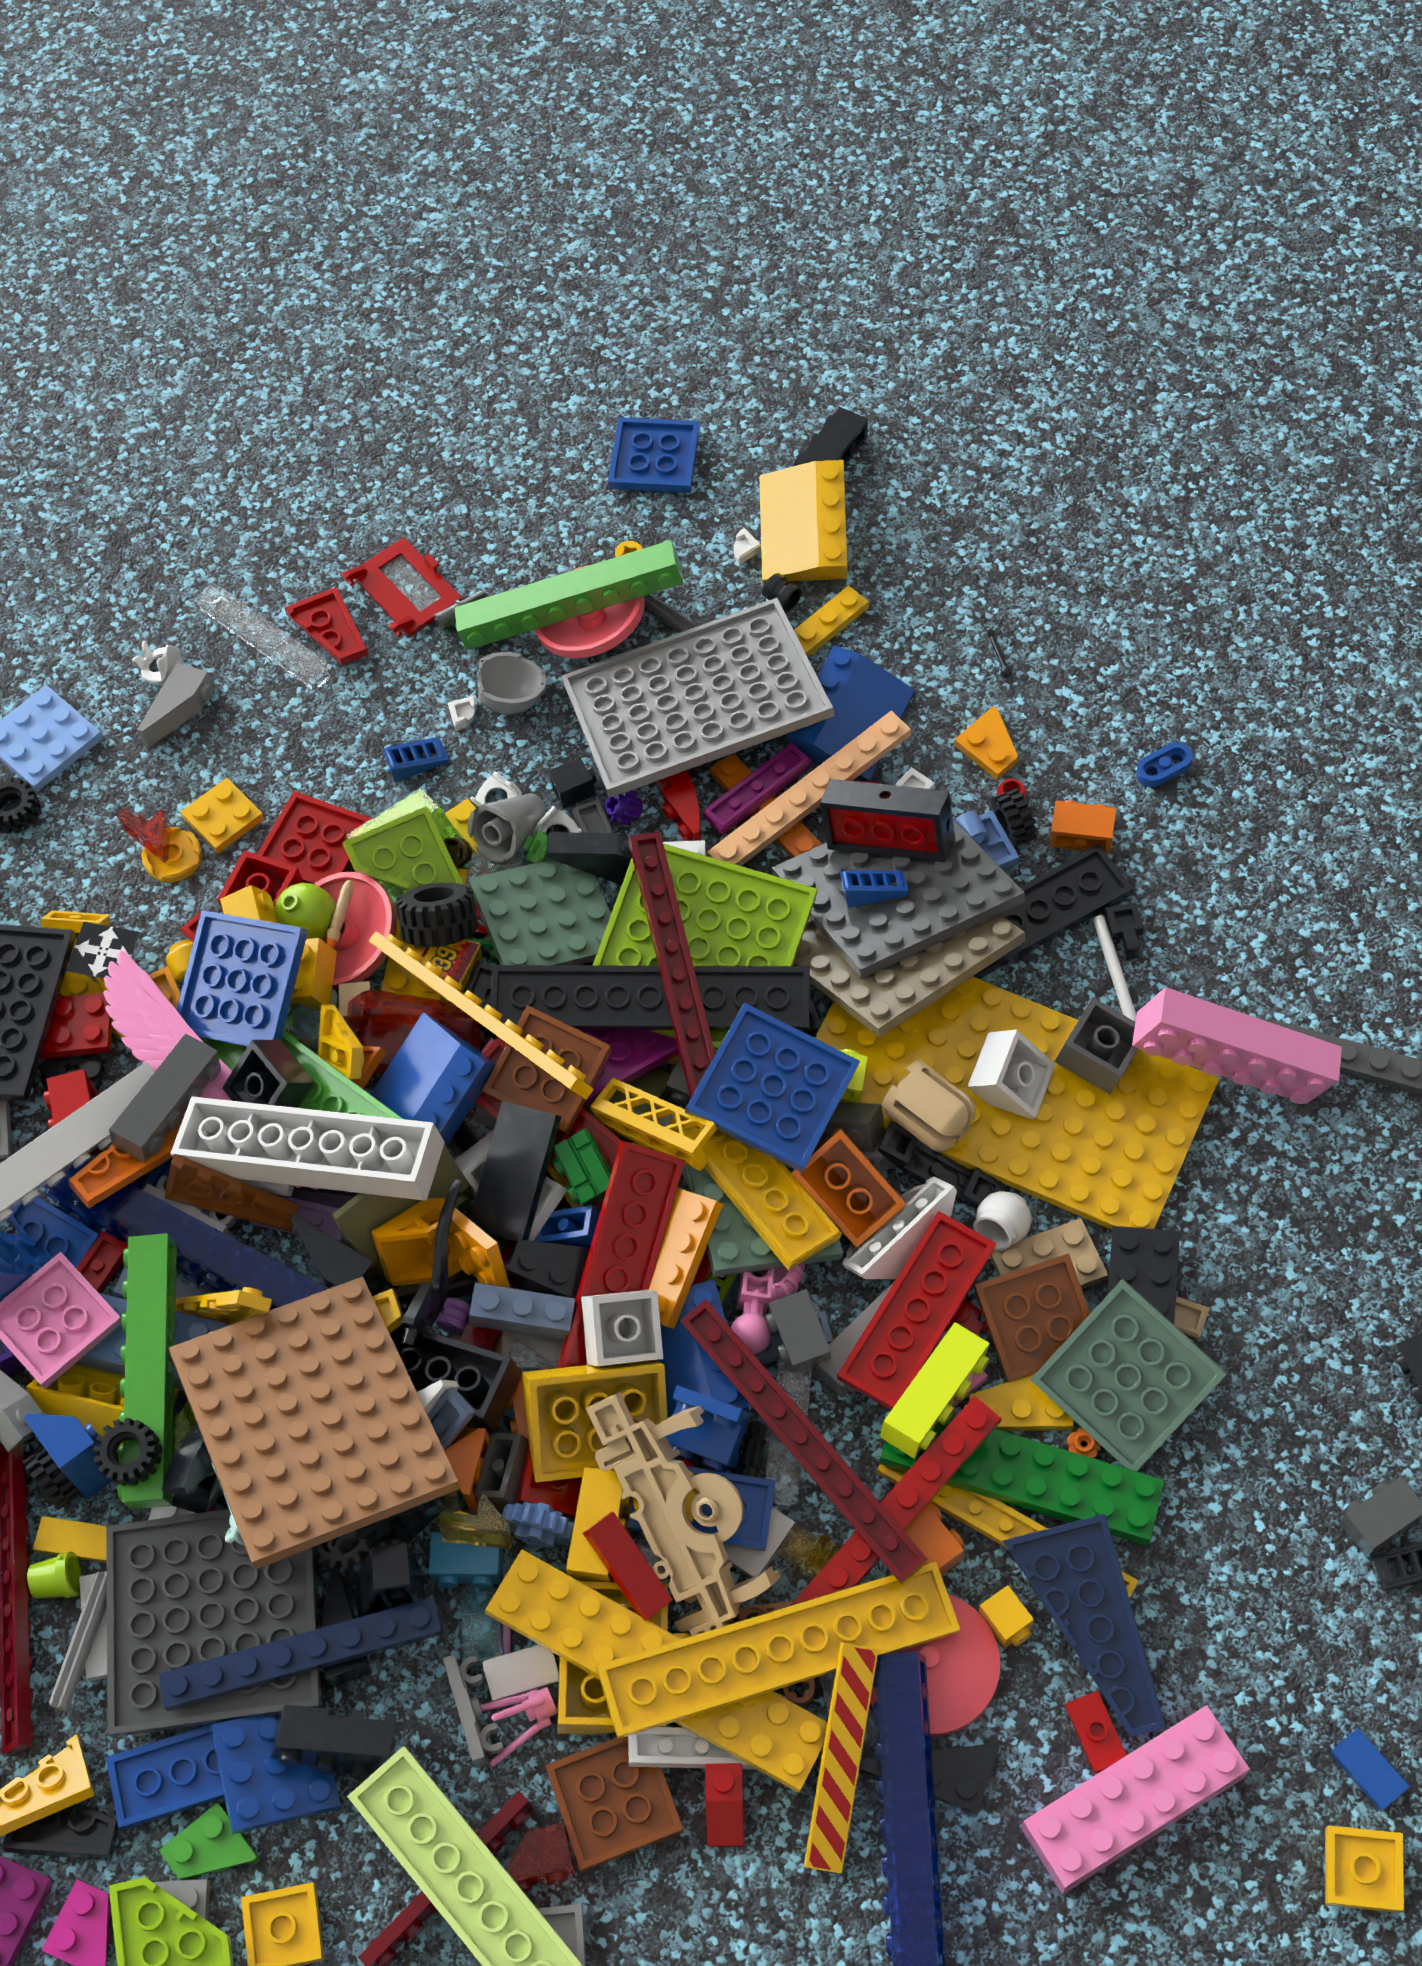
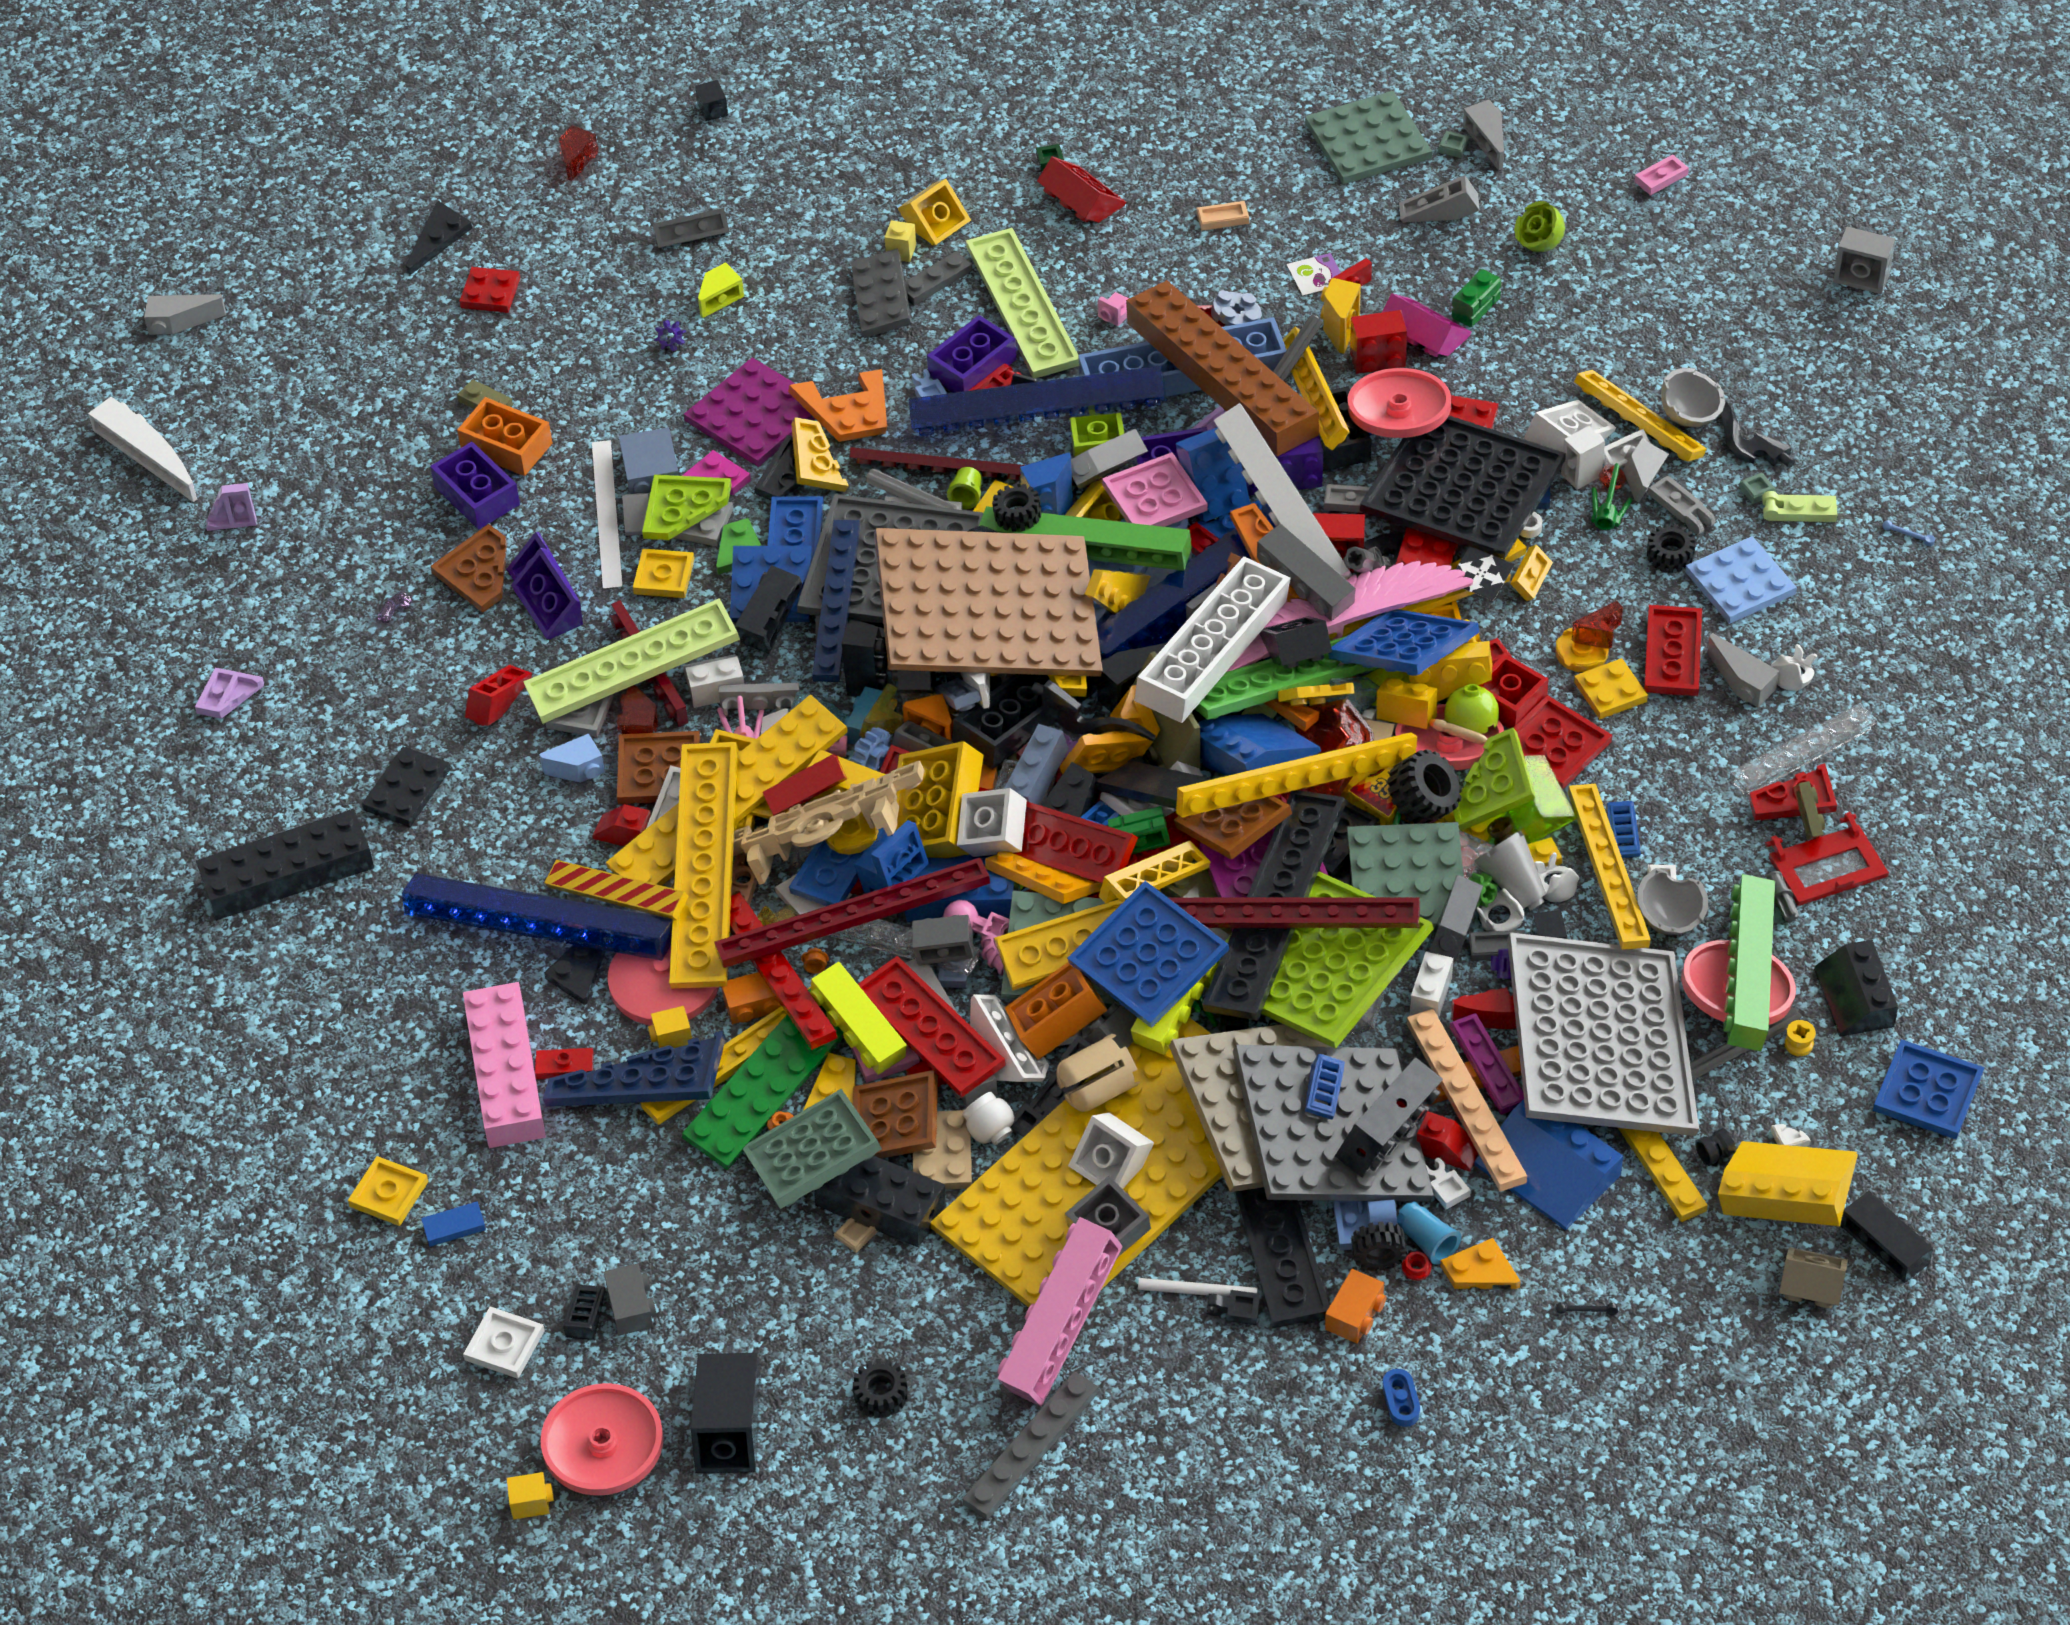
camera: 105 degrees right, 10 degrees down
(117, 1059) = (1365, 560): none -> dark grey piece
(158, 769) = (1673, 650): none -> red plate
(356, 600) = (1807, 799): none -> olive plate
(456, 1775) = (706, 676): none -> white slope
(476, 746) = (1609, 867): none -> yellow plate
(558, 526) = (1857, 989): none -> black slope
(636, 1911) = (574, 760): none -> light blue slope
(895, 490) = (1813, 1277): none -> dark tan slope
(976, 785) = (1428, 1232): none -> dark azure plant
(1368, 1200) = (880, 1373): none -> black tyre

